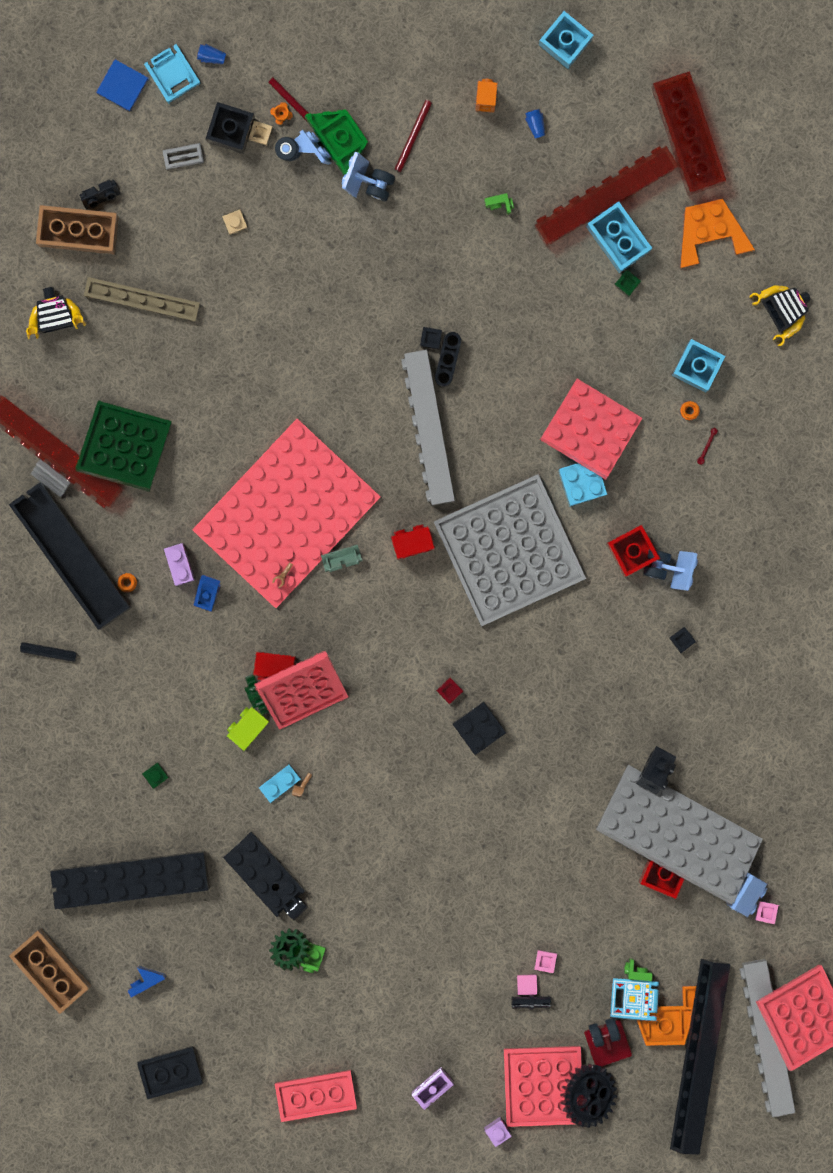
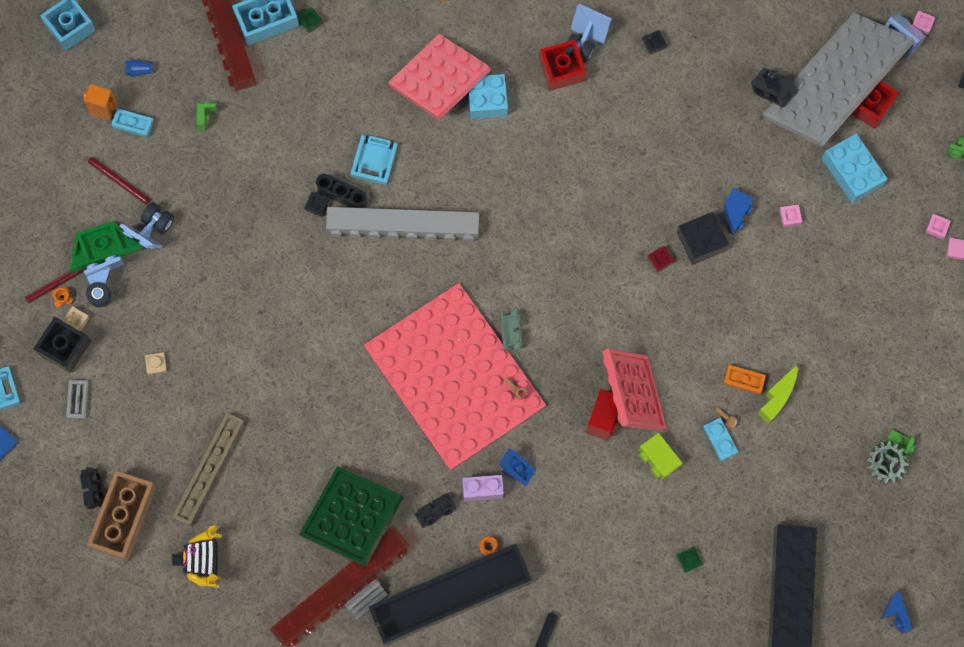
camera: 80 degrees left, 15 degrees down
(154, 531) = (443, 505): none -> black hinge
(253, 695) = (628, 437): dark green gear -> none
(262, 870) = (806, 475): black hinge -> none
(334, 832) = (778, 396): none -> lime slope
(343, 795) = (744, 379): none -> orange plate
(412, 542) = (511, 259): red brick -> none
(475, 133) = (132, 122): none -> medium azure plate
(495, 383) = (374, 157): none -> medium azure container
(509, 550) = (537, 176): light grey plate -> none
(517, 755) = (735, 209): none -> blue slope
(524, 812) = (790, 215): none -> bright pink plate
(587, 867) = (854, 168): none -> medium azure brick

